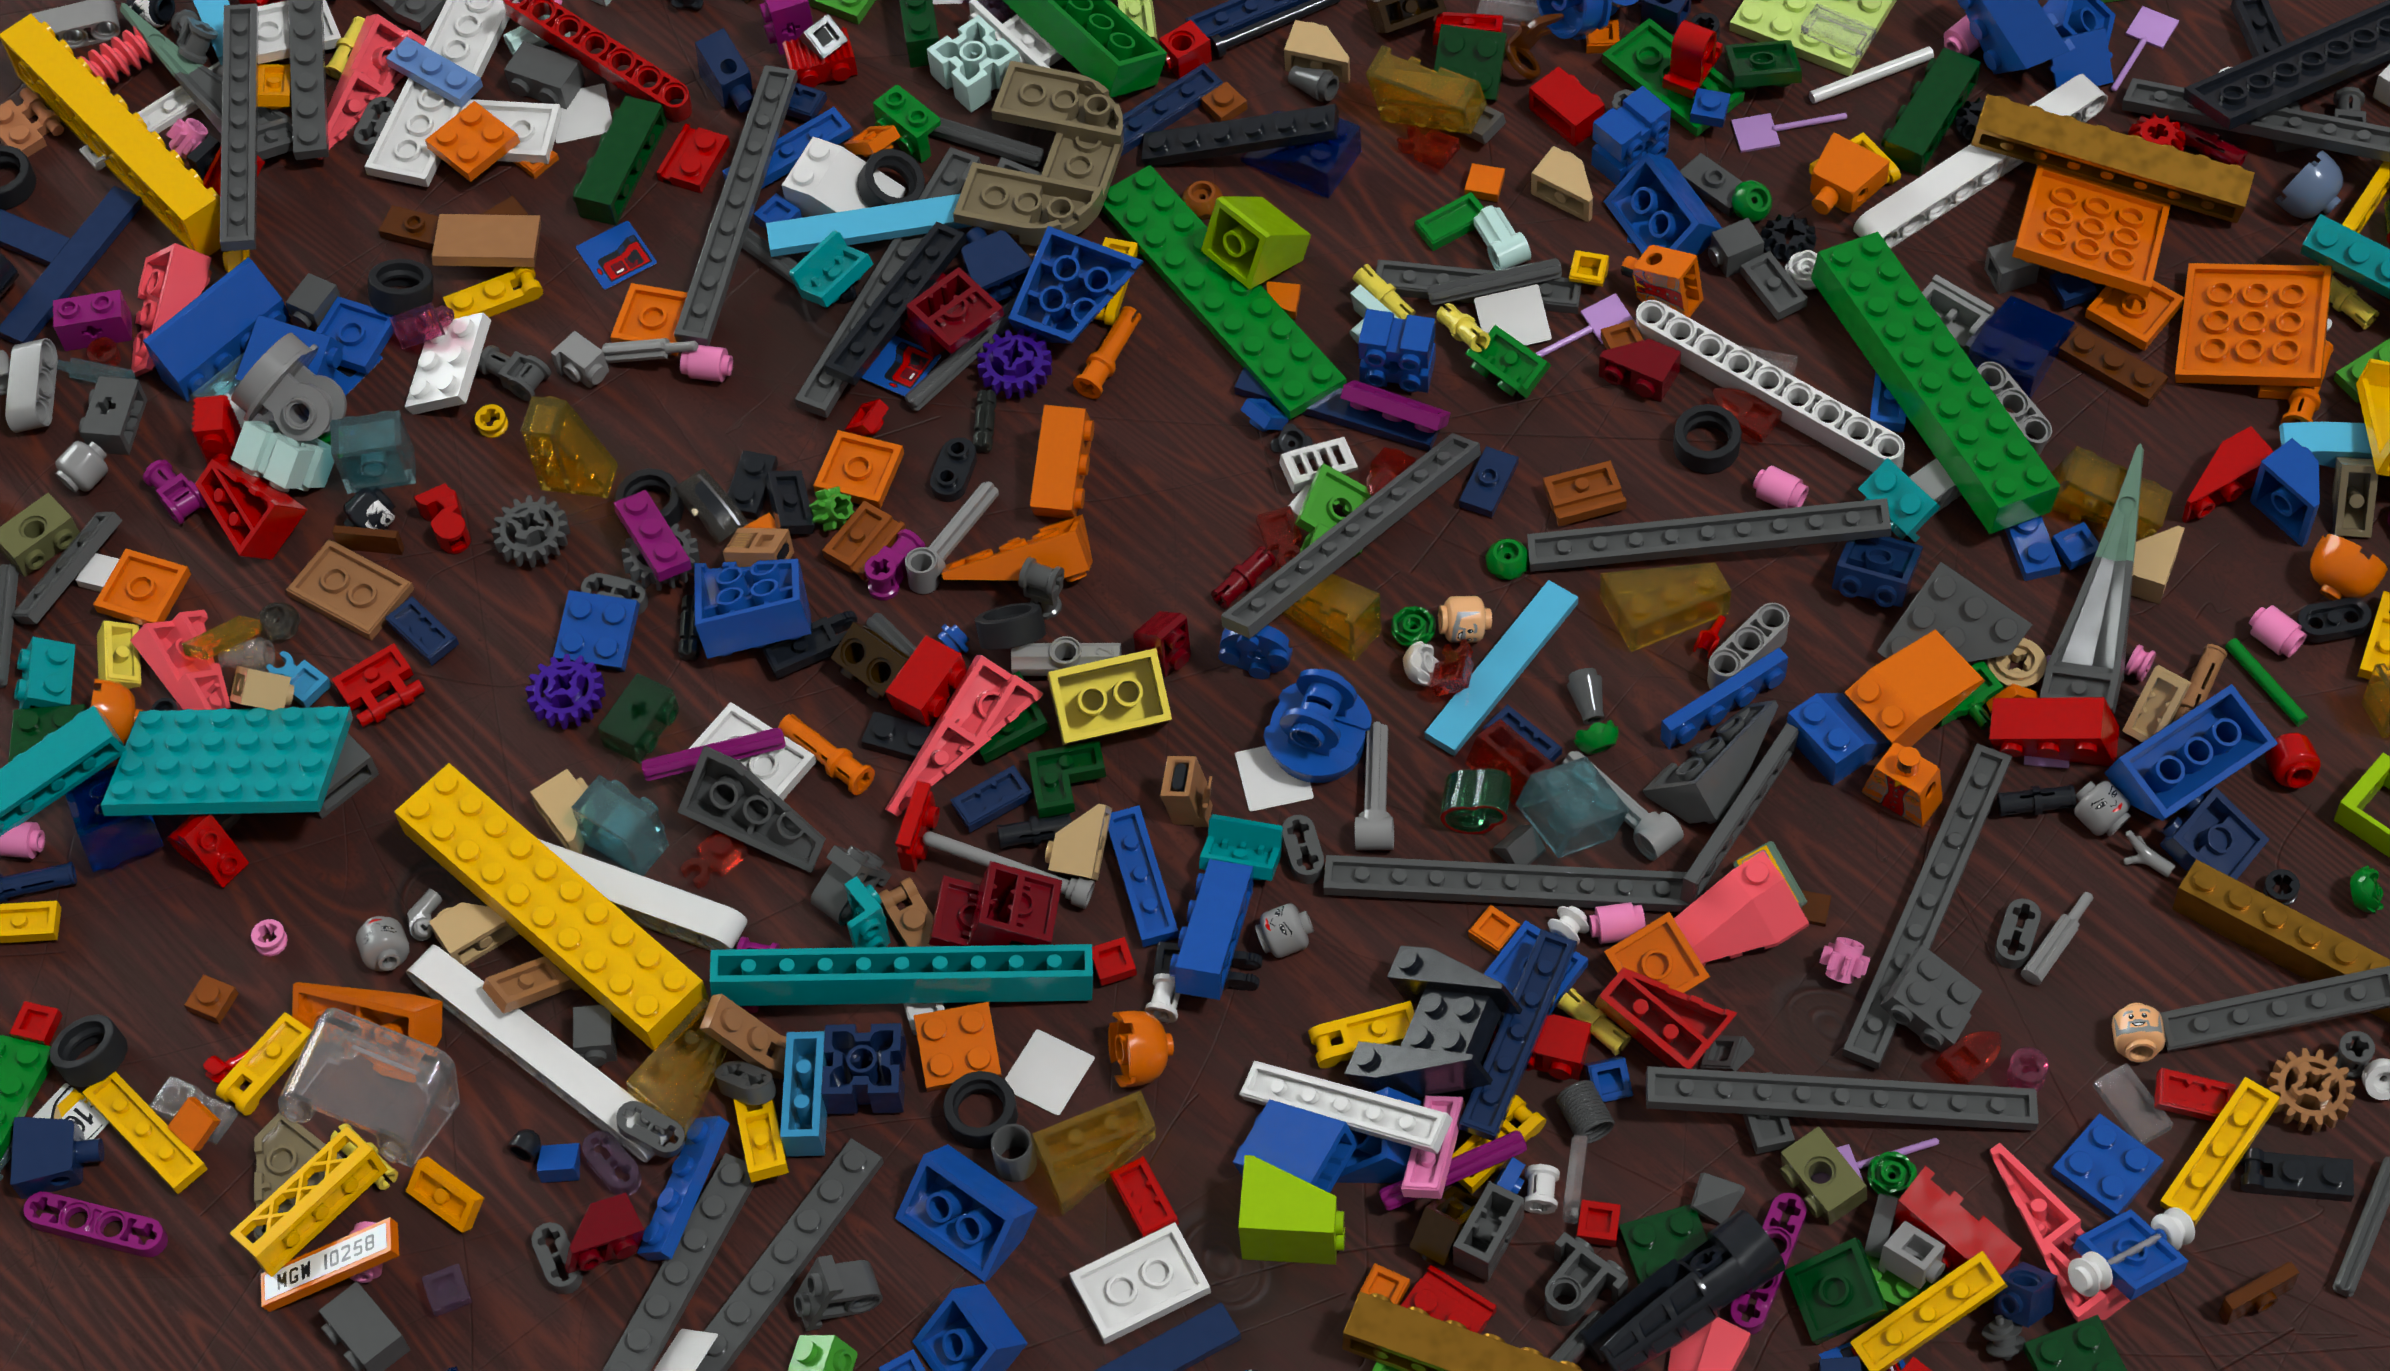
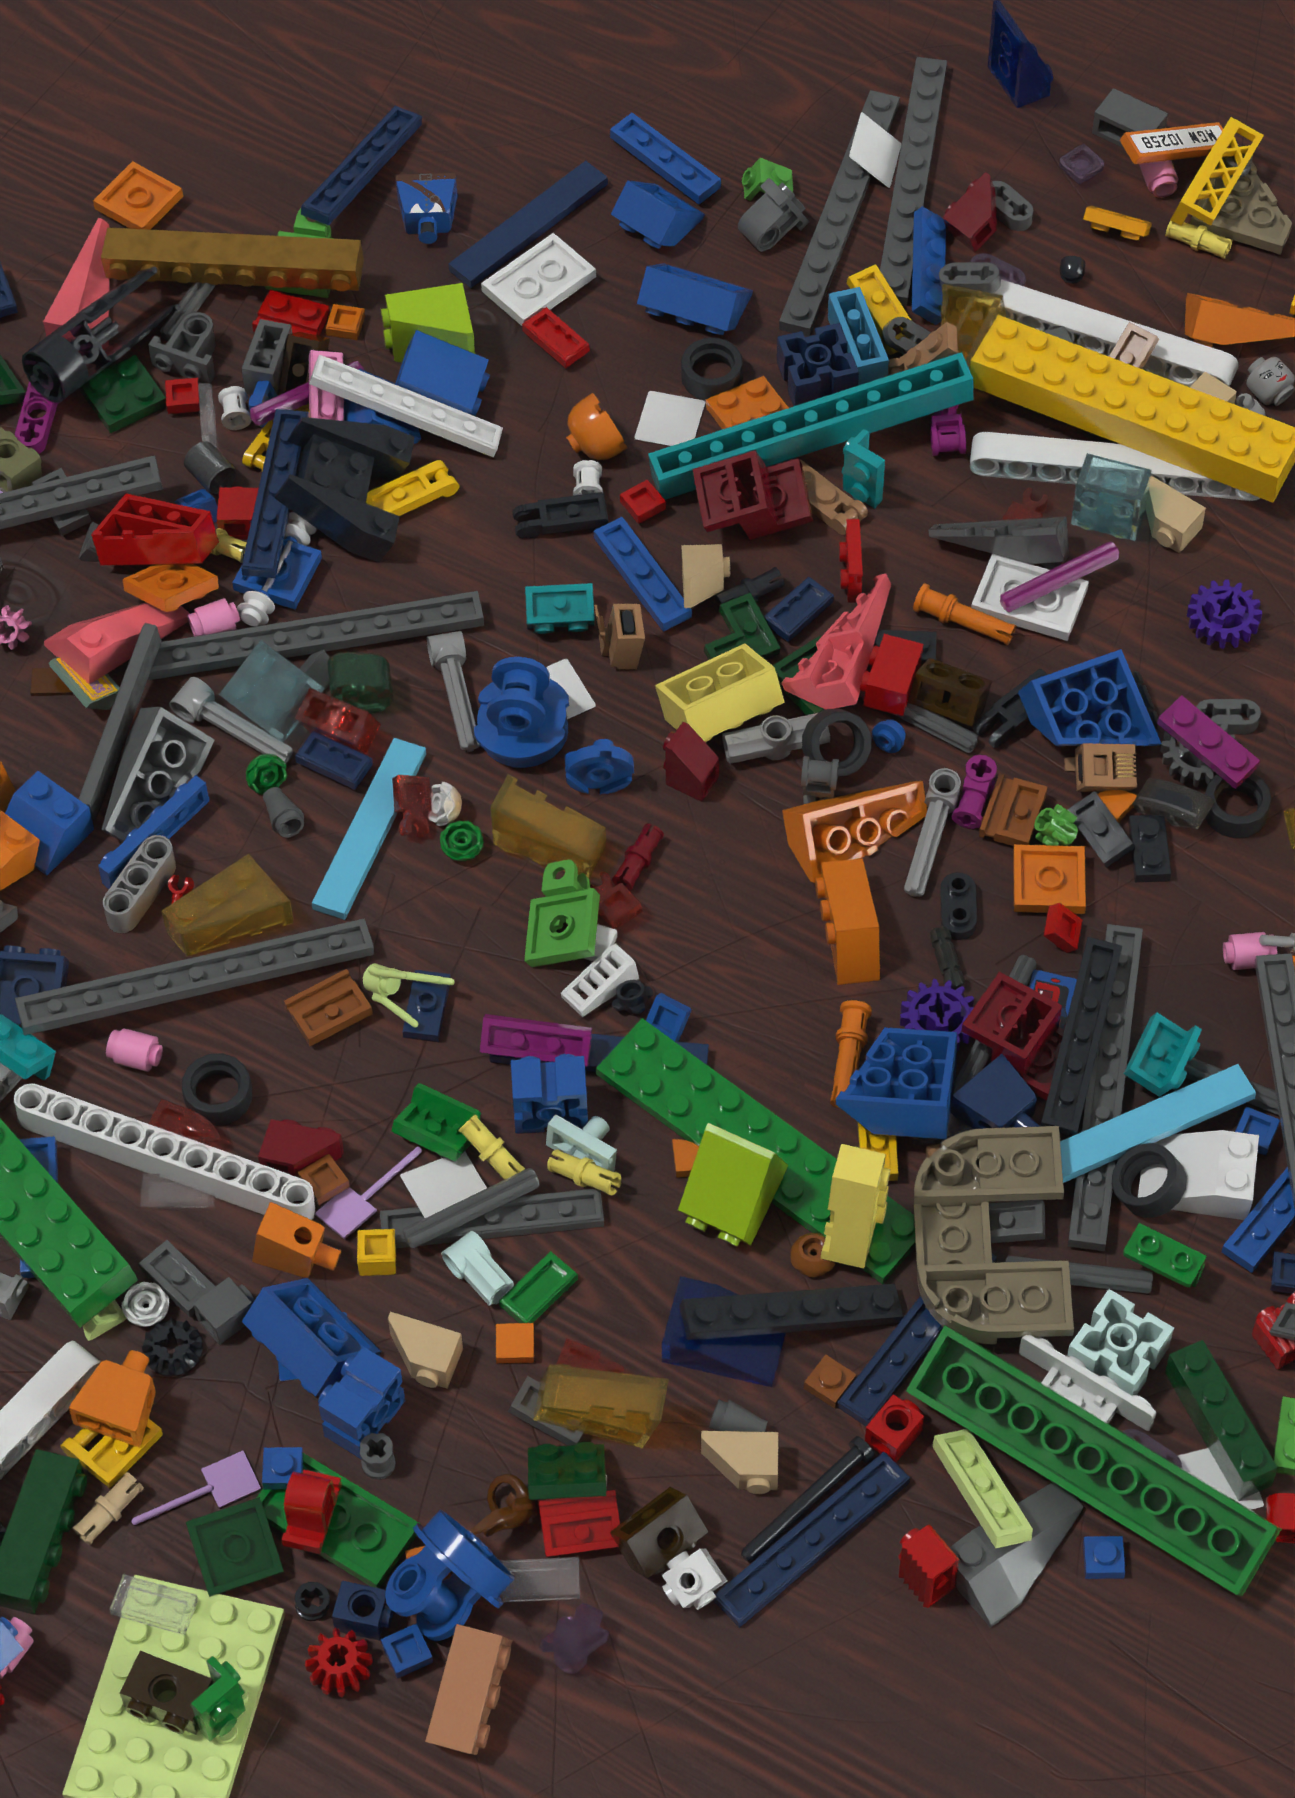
camera: 160 degrees right, 0 degrees up
(374, 1083) = (1215, 259): clear windscreen -> none
(559, 1163) = (1039, 266): blue slope -> none
(597, 629) = (1224, 673): blue plate -> none
(639, 718) = (1145, 604): clear green brick -> none
(846, 864) = (890, 508): dark grey pin -> none
(872, 140) = (1190, 1222): orange plate -> none
(1013, 1136) = (670, 337): dark grey piece -> none
(1076, 890) = (769, 547): light grey piece -> none
(1091, 1145) = (608, 351): clear yellow wedge -> none
(1156, 175) = (855, 1205): none -> light yellow wedge
(1212, 929) = (560, 520): blue brick -> none
(1284, 930) = (502, 551): light grey head -> none
(1310, 846) = (514, 627): dark grey beam -> none
(1350, 536) = (535, 881): dark grey plate -> none
(1386, 467) = (527, 983): clear red plate -> none
(1464, 619) = (414, 851): light nougat head -> none
(1493, 930) = (321, 600): orange tile -> none
(1503, 567) = (389, 940): green plate -> none
(1525, 501) = (386, 981): none -> yellowish green plant
(1565, 105) = (444, 1449): red brick -> none
(1711, 182) = (264, 1396): dark grey plate -> none
(1716, 1197) = (90, 433): dark grey slope -> none
(1743, 202) = (217, 1372): green plate -> none
(1867, 119) = (108, 1508): none -> tan pin
(1870, 75) = (110, 1580): white bar -> none

